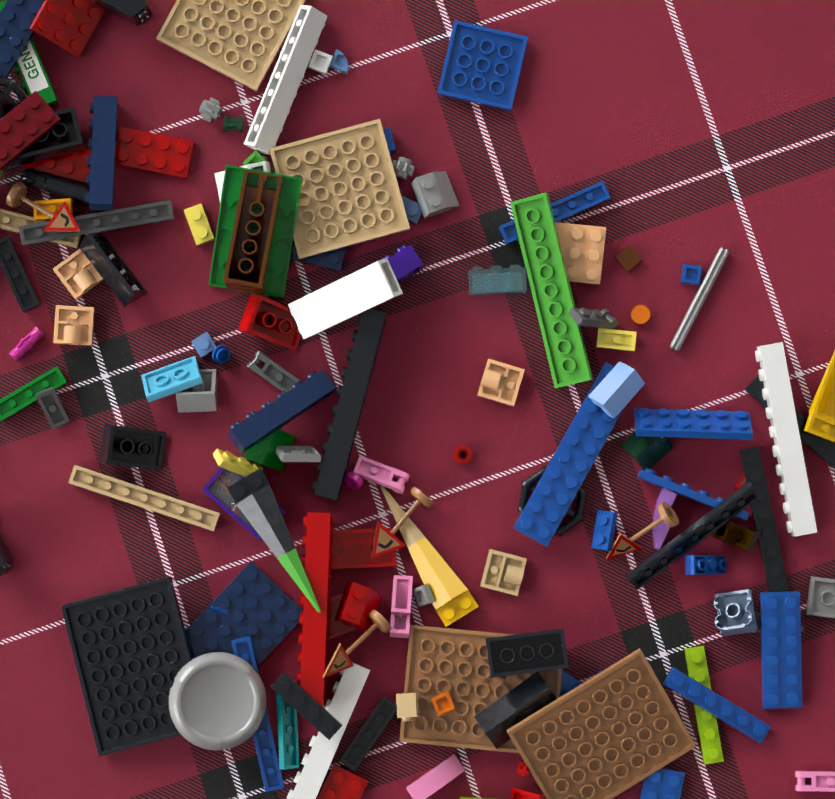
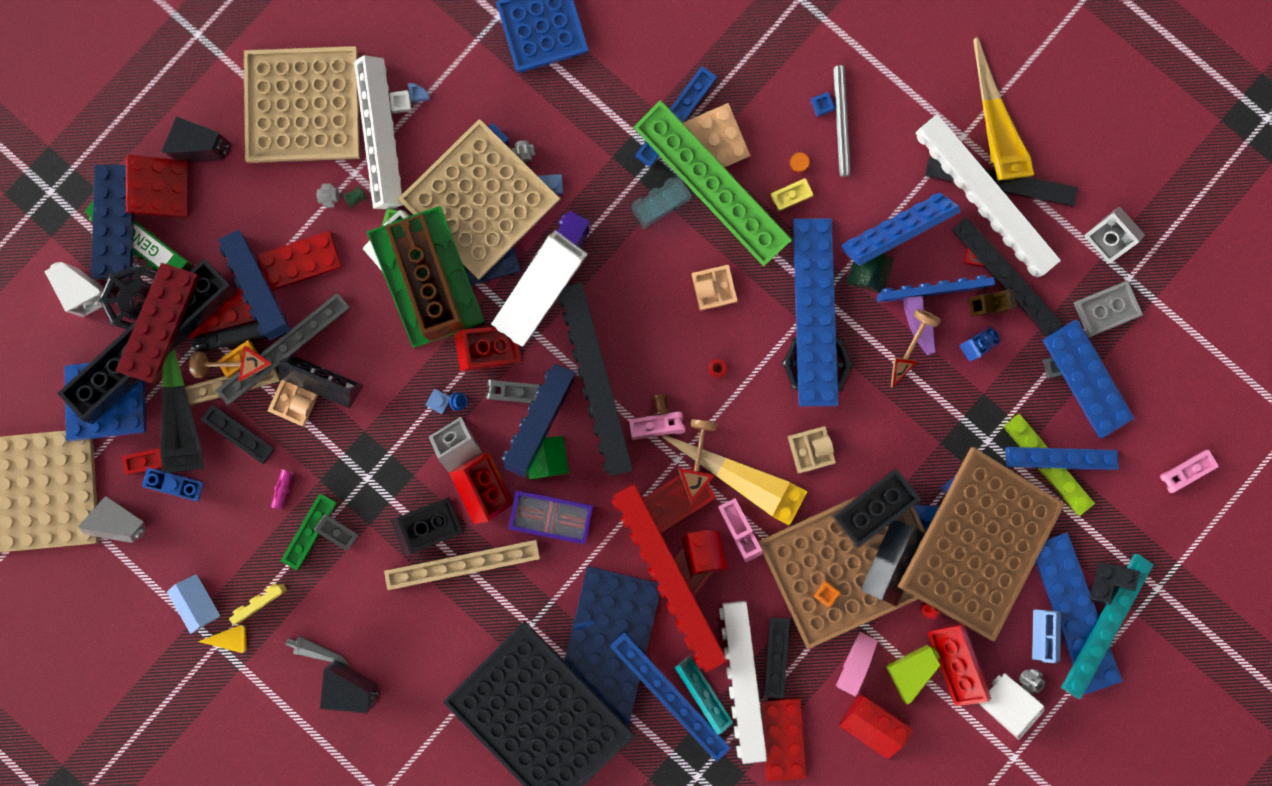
camera: 30 degrees left, 0 degrees up
(74, 325) = (314, 449): light nougat plate -> none
(171, 379) = (426, 447): medium azure tile -> none
(197, 441) = (481, 488): none -> red slope
(199, 224) = (374, 300): light yellow plate -> none
(217, 701) = (629, 708): light grey piece -> none
(235, 464) = (529, 488): light yellow plate -> none
(260, 507) = (568, 514): black plate -> none
(297, 454) = (575, 449): light grey tile -> none
(306, 705) = (711, 666): black plate -> none
(340, 659) = (716, 607): medium nougat piece -> none
(353, 480) = (636, 445): dark pink tile -> none
(395, 458) = (661, 404): none -> reddish brown bush
(407, 706) = (799, 615): tan brick -> none
(423, 595) = (754, 509): light grey tile -> none
(434, 193) = (563, 158): light grey slope -> none
(593, 318) = (763, 185): dark grey plate -> none
(604, 530) = (877, 363): blue plate -> none
(617, 389) = (818, 235): light blue piece -> none
(628, 258) = (761, 120): reddish brown tile -> none
(693, 535) = (957, 323): black tile -> none
(735, 612) = (1030, 369): sand blue slope -> none

